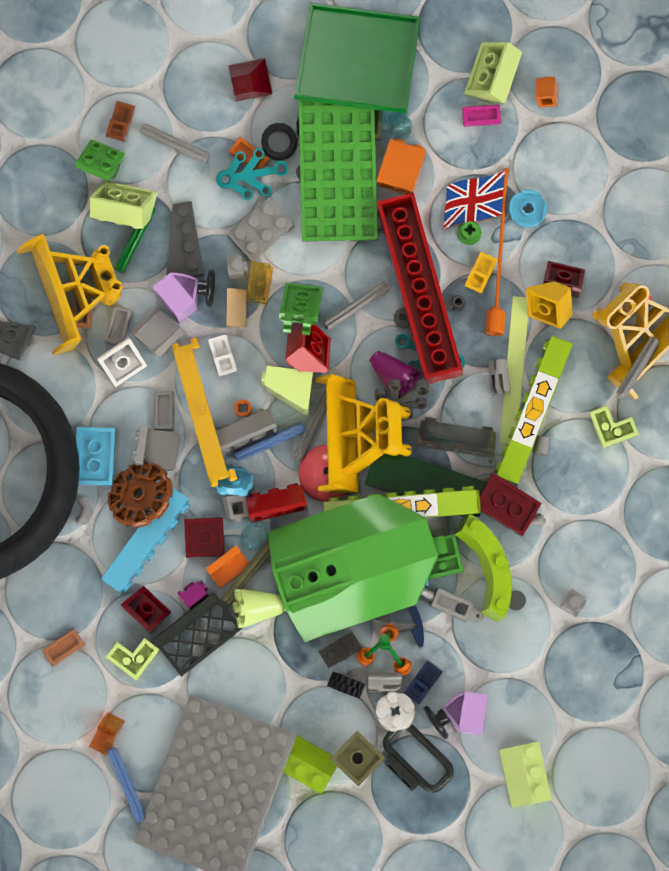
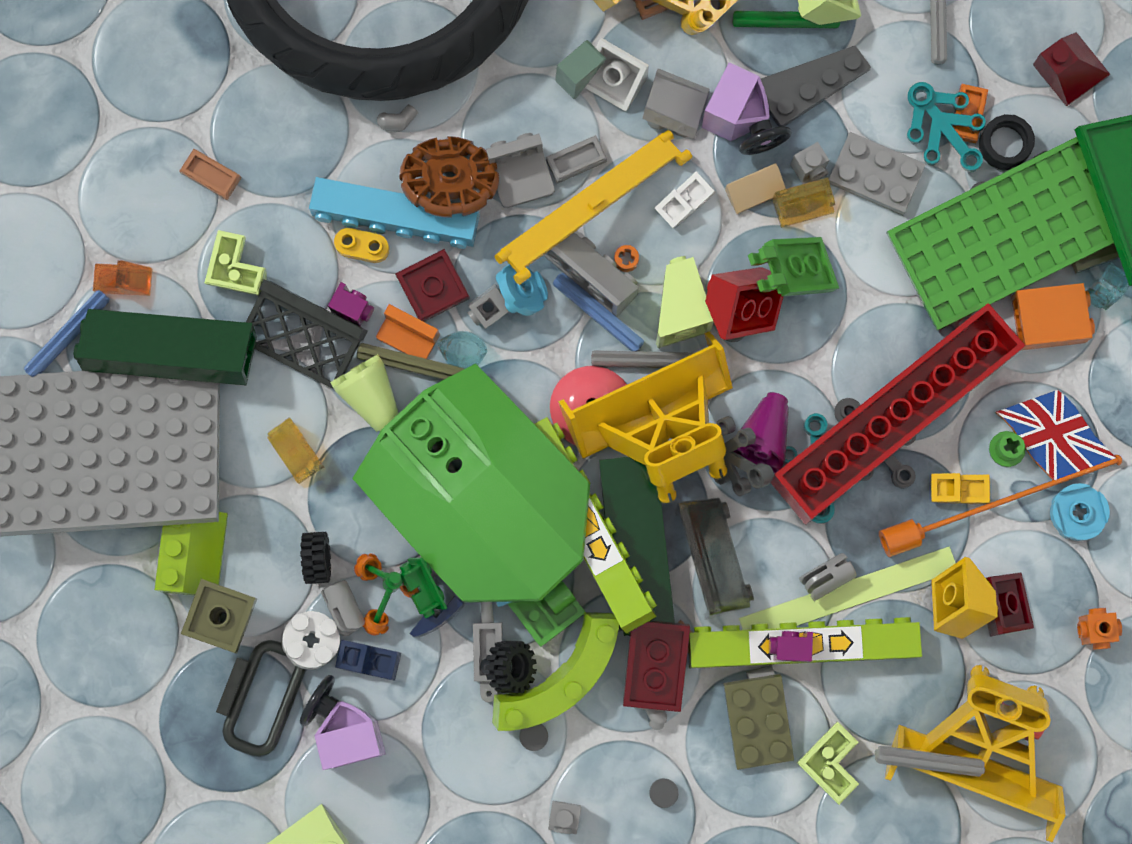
camera: 65 degrees right, 0 degrees up
(96, 455) = (476, 99): medium azure plate -> none
(108, 381) = (579, 68): none -> sand green slope
(118, 325) = (662, 50): light grey tile -> none
(146, 609) = (302, 253): dark red slope -> none
(157, 571) = (360, 246): none -> yellow plate
(167, 722) = (166, 346): none -> dark green brick
(270, 670) = (294, 450): none -> clear yellow hinge
(276, 502) = (519, 356): red slope -> none
(340, 650) = (360, 529): clear smoke brick -> none
(356, 305) = (835, 343): light grey axle -> none
(387, 624) = (418, 574): none -> green hinge
(468, 593) = (499, 667): none -> black tyre
(533, 418) = (792, 647): none -> magenta brick
(568, 459) = (758, 721): none -> olive plate
(585, 536) = (663, 793): none -> dark grey tile
(600, 237) = (1089, 630): none -> orange brick

